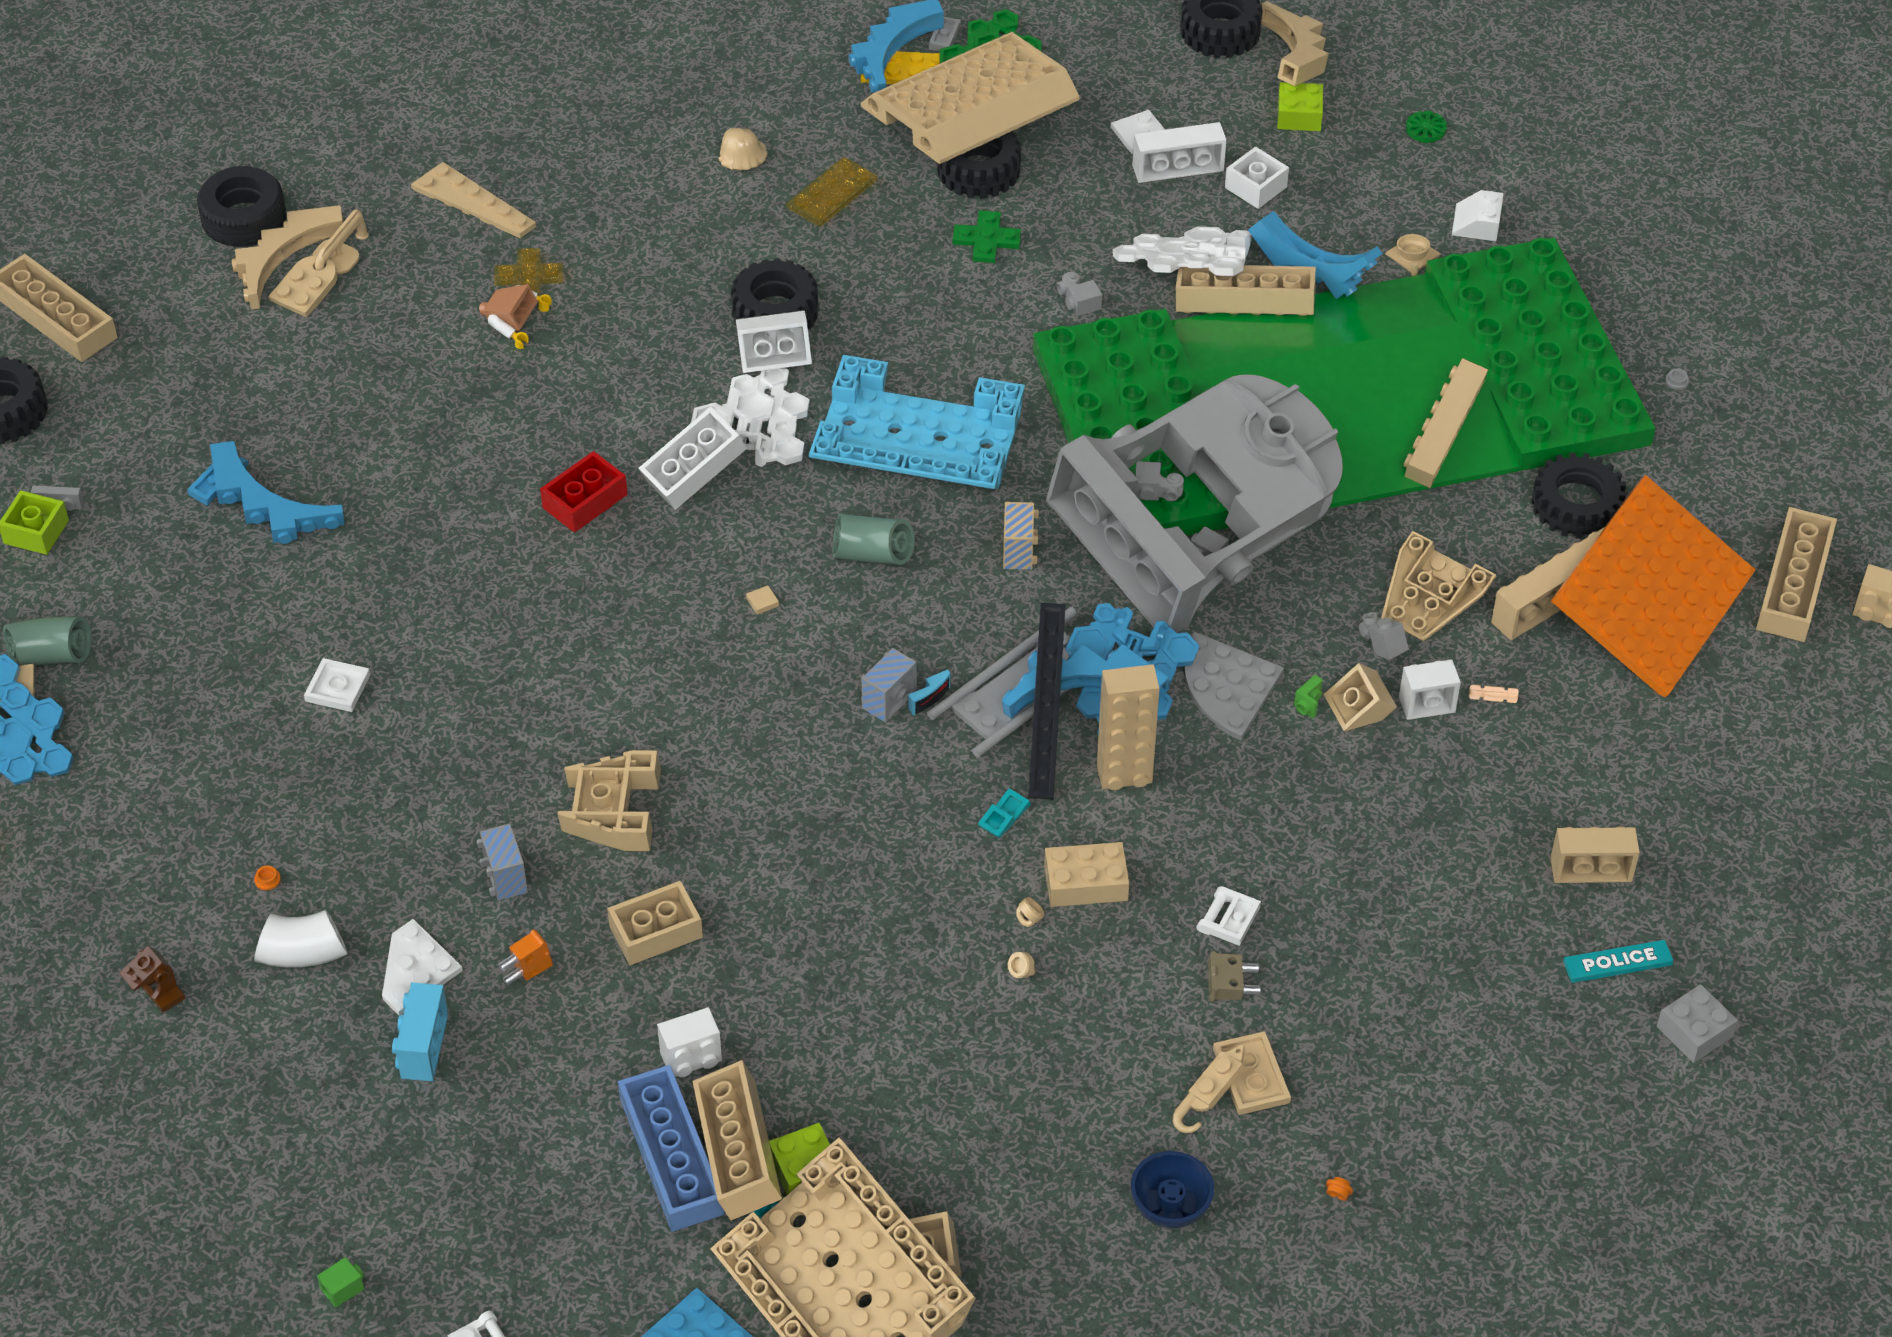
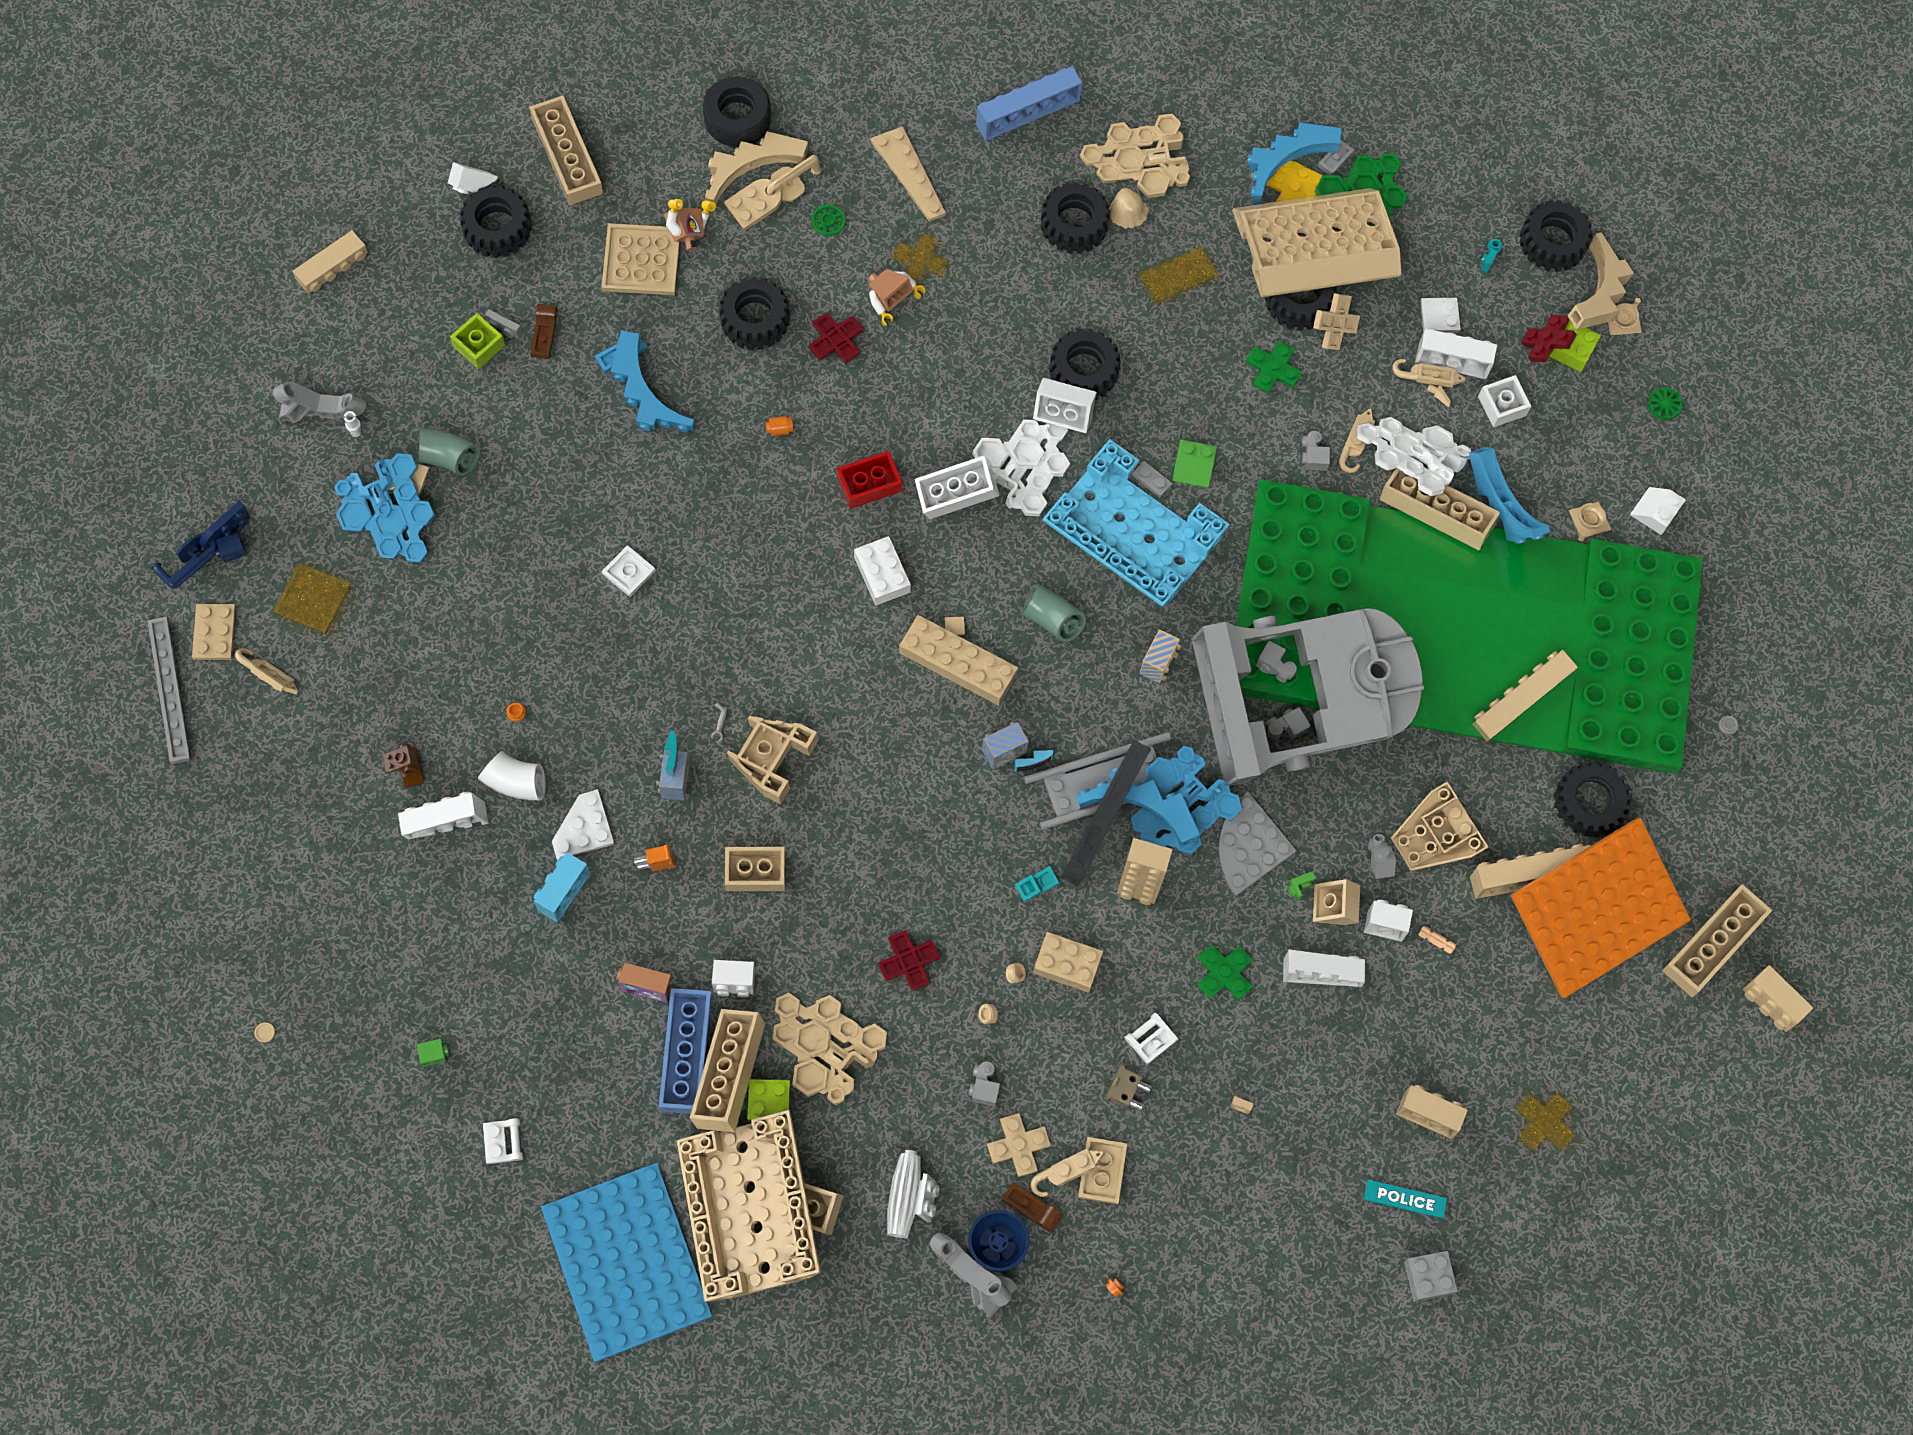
camera: 20 degrees right, 20 degrees up
(111, 487) = (544, 331): none -> reddish brown plate
(196, 381) = (640, 260): none -> tan plate
(228, 1017) = (443, 815): none -> white wedge
(235, 325) = (687, 223): none -> torso
(361, 402) = (754, 333): none -> black tyre
(401, 274) = (828, 219): none -> green wheel
(448, 480) = (779, 426): none -> orange brick
(470, 377) = (835, 338): none -> dark red plate
(492, 826) = (672, 750): none -> teal slope
(533, 805) = (718, 732): none -> light grey piece
(577, 91) = (1028, 103): none -> medium blue brick
(580, 1091) = (645, 982): none -> nougat brick
(647, 573) = (882, 570): none -> white brick
(690, 192) = (1075, 237): none -> black tyre
(719, 110) = (1131, 160): none -> tan piece
(785, 626) = (958, 660): none -> tan brick
(824, 1076) = (813, 1041): none -> tan piece
(894, 949) = (908, 961): none -> dark red plate
(910, 382) = (1151, 479): none -> light grey plate
(950, 348) = (1194, 463): none -> bright green slope
(1033, 166) = (1336, 321): none -> tan plate
(1035, 1191) = (910, 1195): none -> white plate
(1060, 1044) = (984, 1090): none -> light grey brick
(1117, 273) = (1353, 445): none -> tan plate
(1135, 1088) = (1018, 1145): none -> tan plate
(1161, 54) = (1488, 259): none -> teal plate
(1161, 184) = (1429, 374): none -> tan plate
(1183, 199) = (1439, 394): none -> tan bar
(1185, 1247) = (988, 1287): none -> light grey connector
(1207, 1148) = (1032, 1208): none -> reddish brown plate
(1272, 100) = (1547, 339): none -> dark red plate
(1274, 818) = (1224, 972): none -> green plate
(1339, 69) = (1626, 319): none -> tan hat
(1374, 939) = (1241, 1105): none -> tan tile
(1383, 766) = (1323, 969): none -> white wedge
(1724, 821) = (1544, 1122): none -> clear yellow plate

